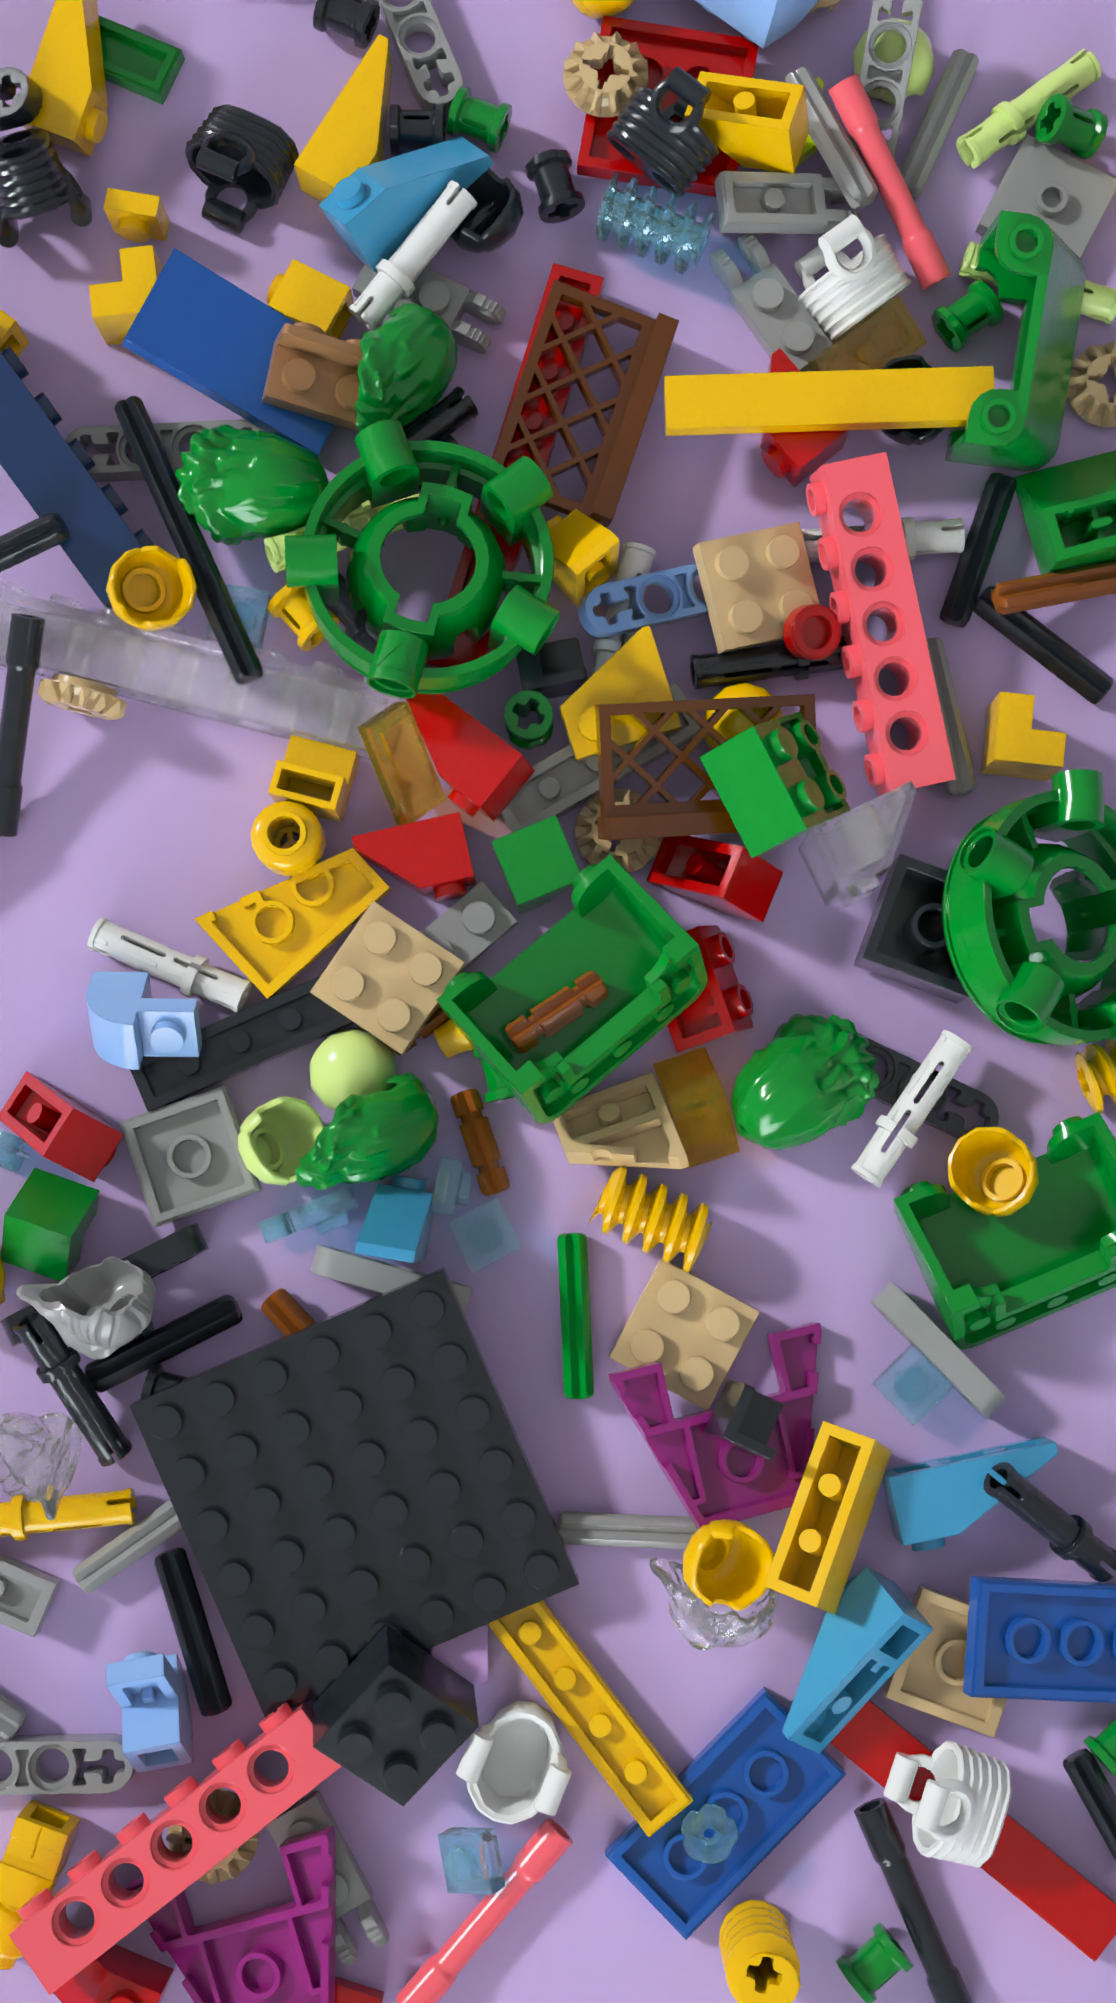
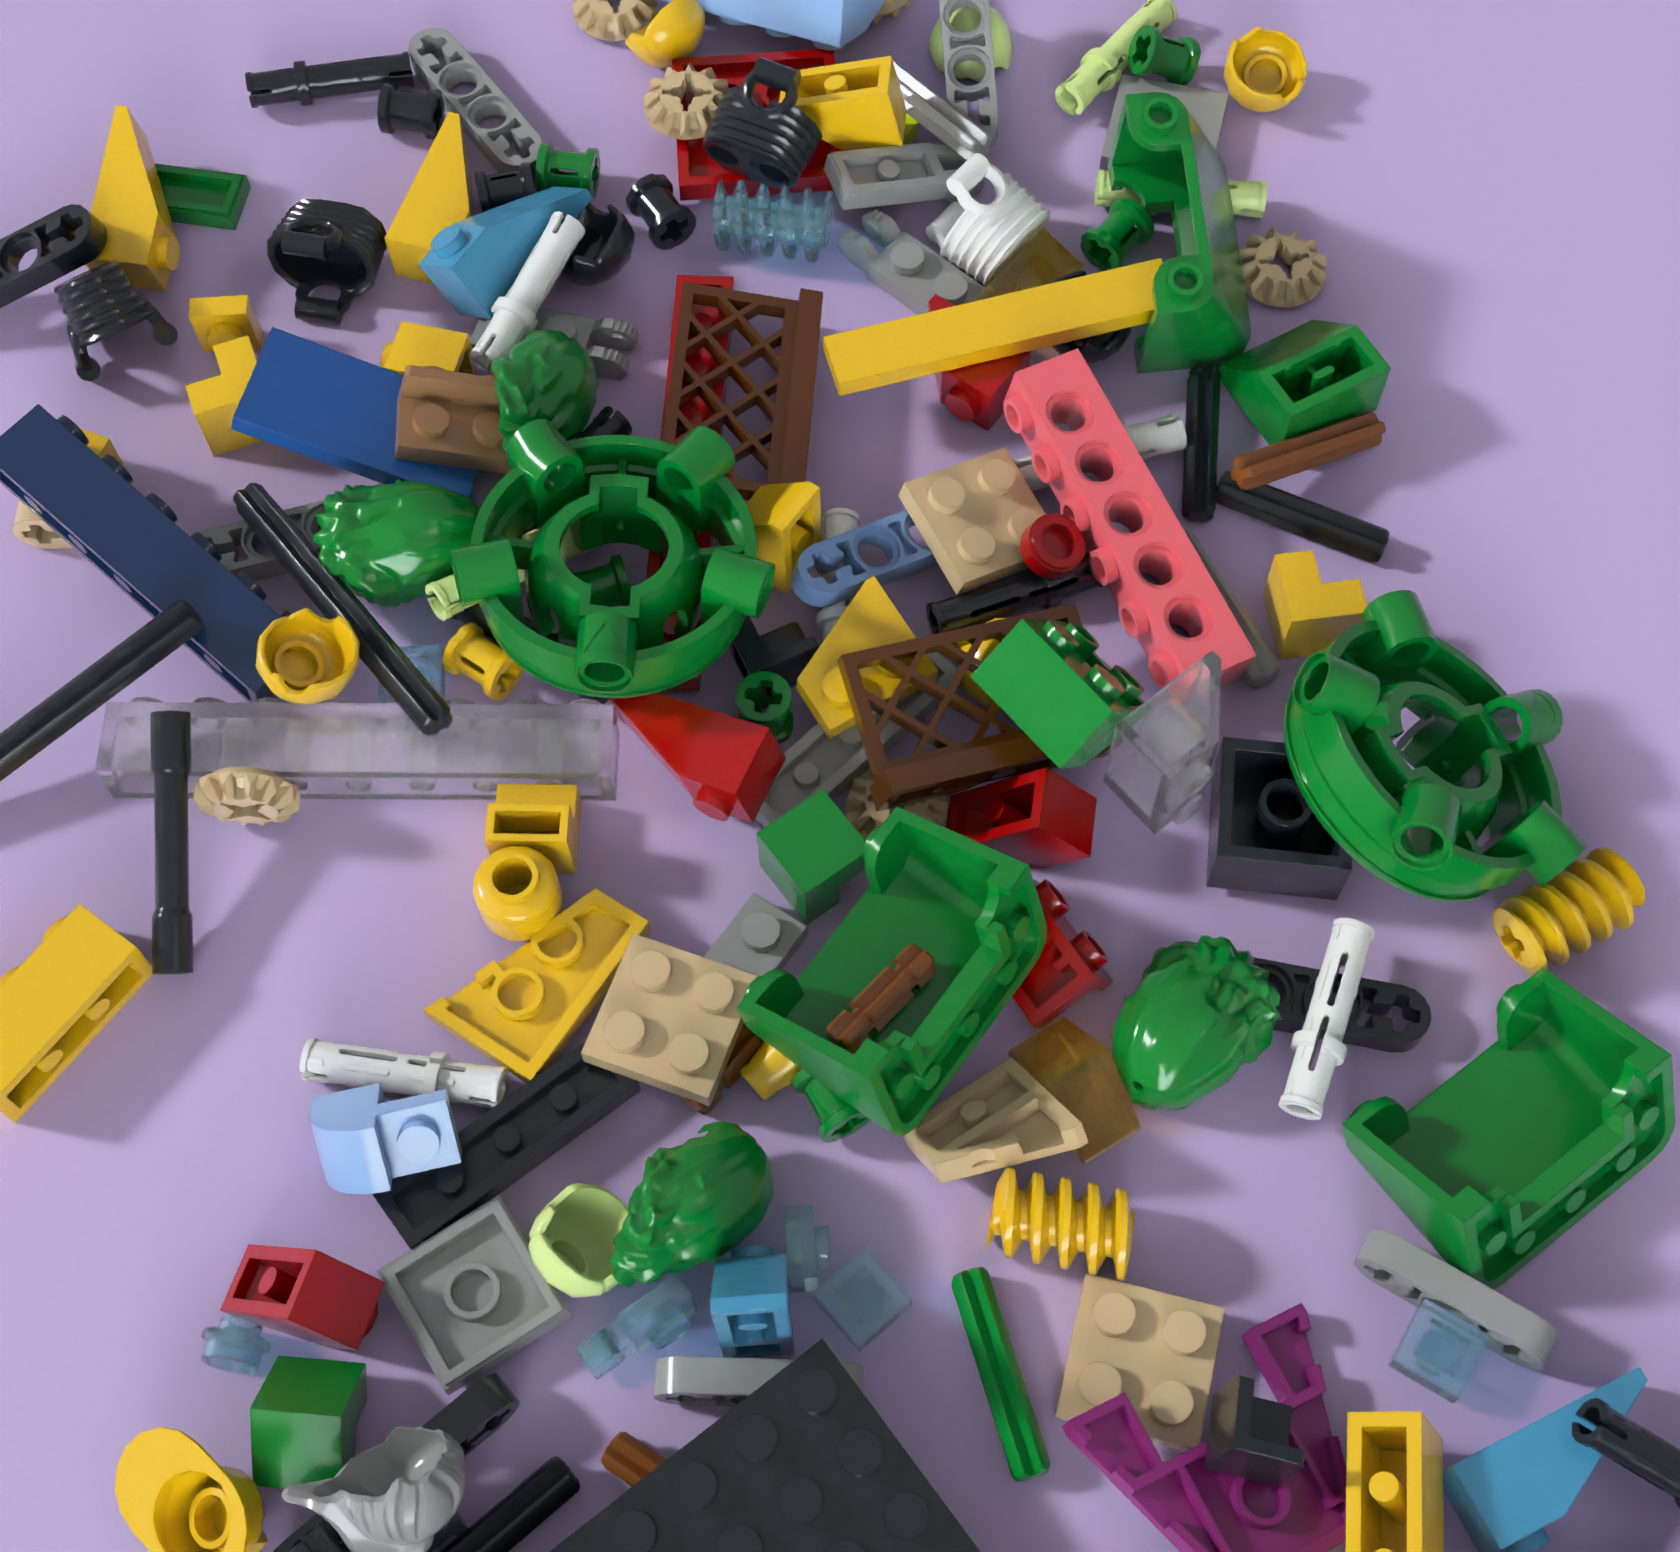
camera: 15 degrees left, 20 degrees down
(350, 1064) = (638, 1129): yellowish green hair -> none
(401, 763) = (632, 781): clear yellow tile -> none
(414, 567) = (608, 583): none -> green bush
(423, 855) = (679, 878): red slope -> none
(480, 1142) = (827, 1190): dark orange axle -> none
(863, 127) = (1044, 181): coral piece -> none
(938, 120) = (1030, 86): light grey axle -> none
(993, 1171) = (1446, 1064): yellow hair -> none

